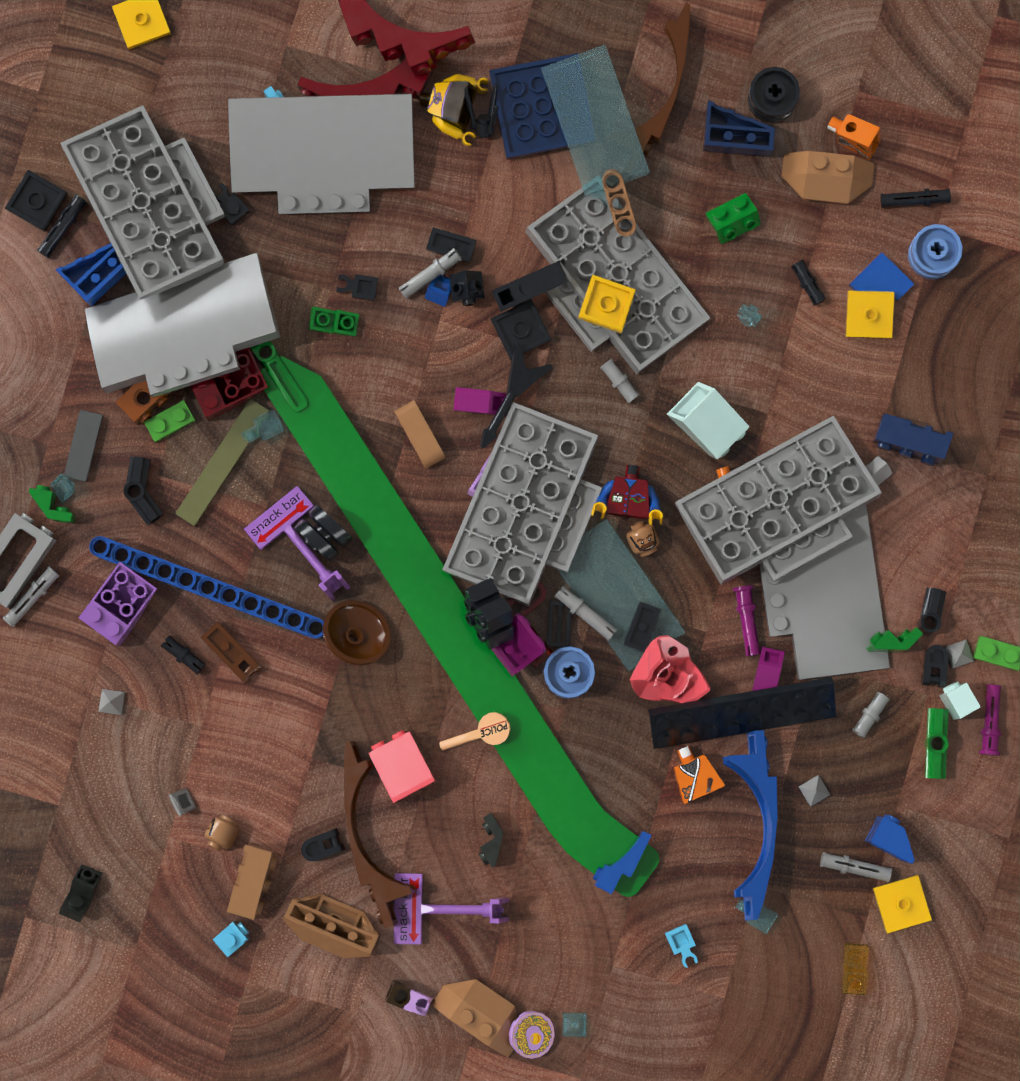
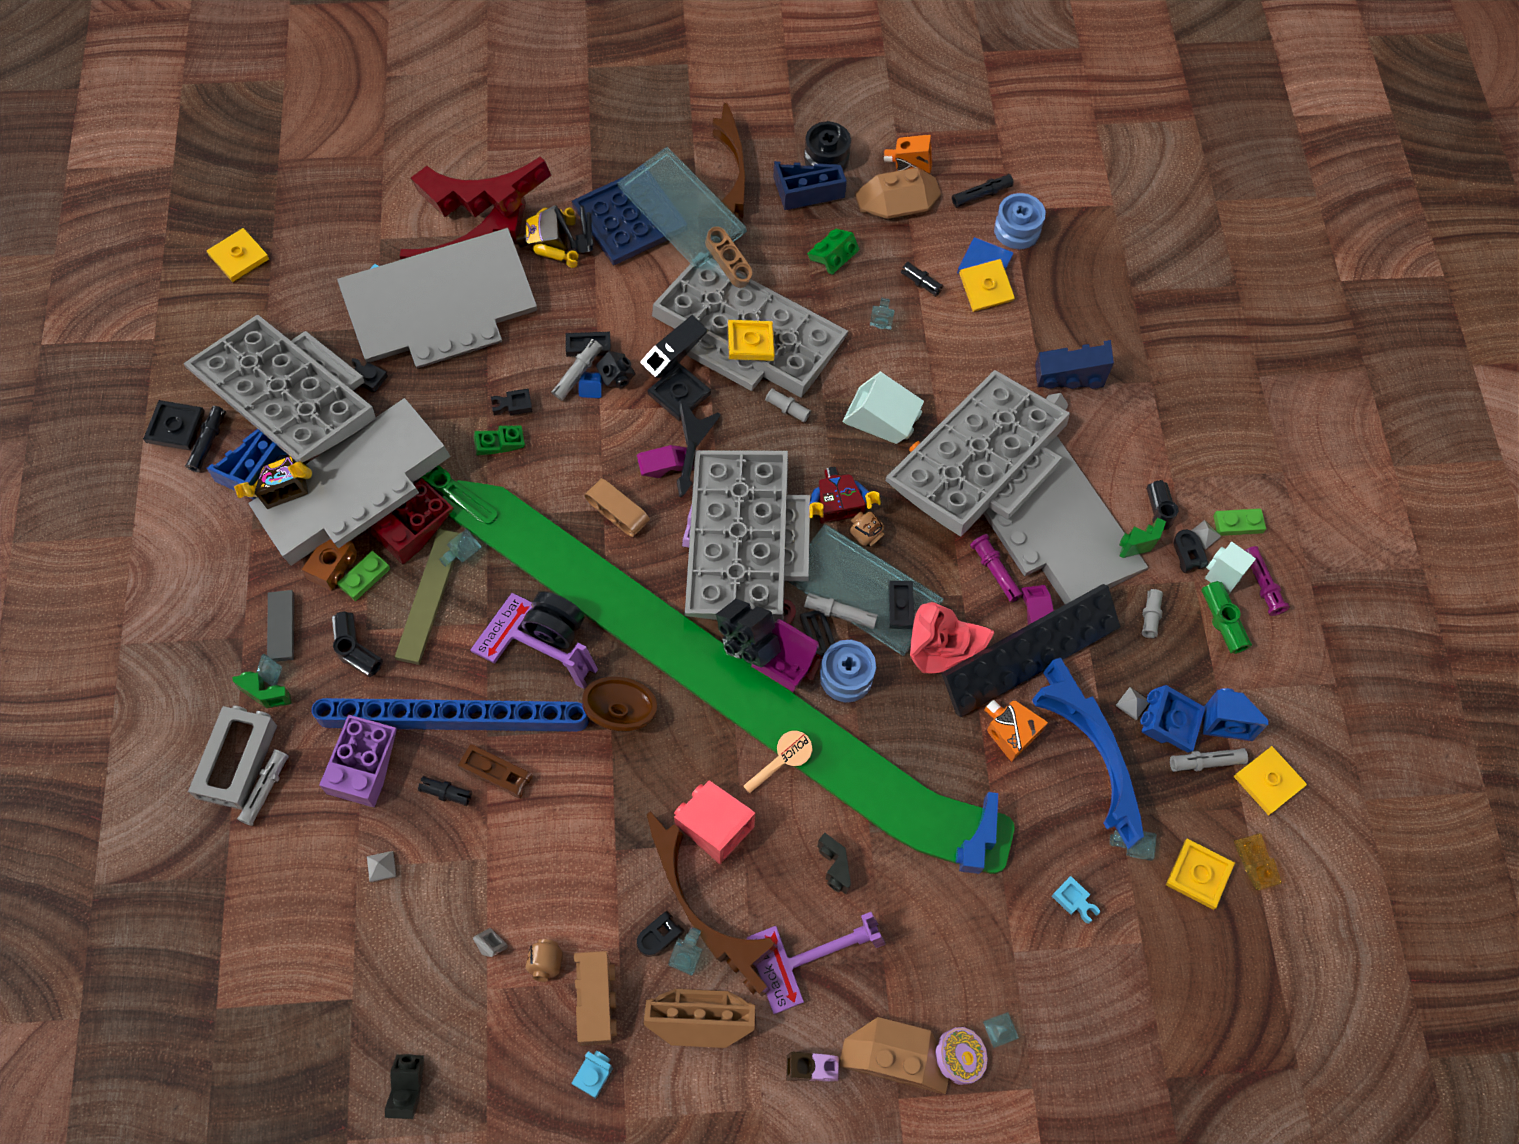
camera: 25 degrees left, 20 degrees down
(116, 306) = (278, 482): none -> torso
(338, 871) = (686, 953): none -> clear light blue plate
(799, 961) = (1200, 874): none -> yellow plate
(840, 819) = (1172, 718): none -> blue plate

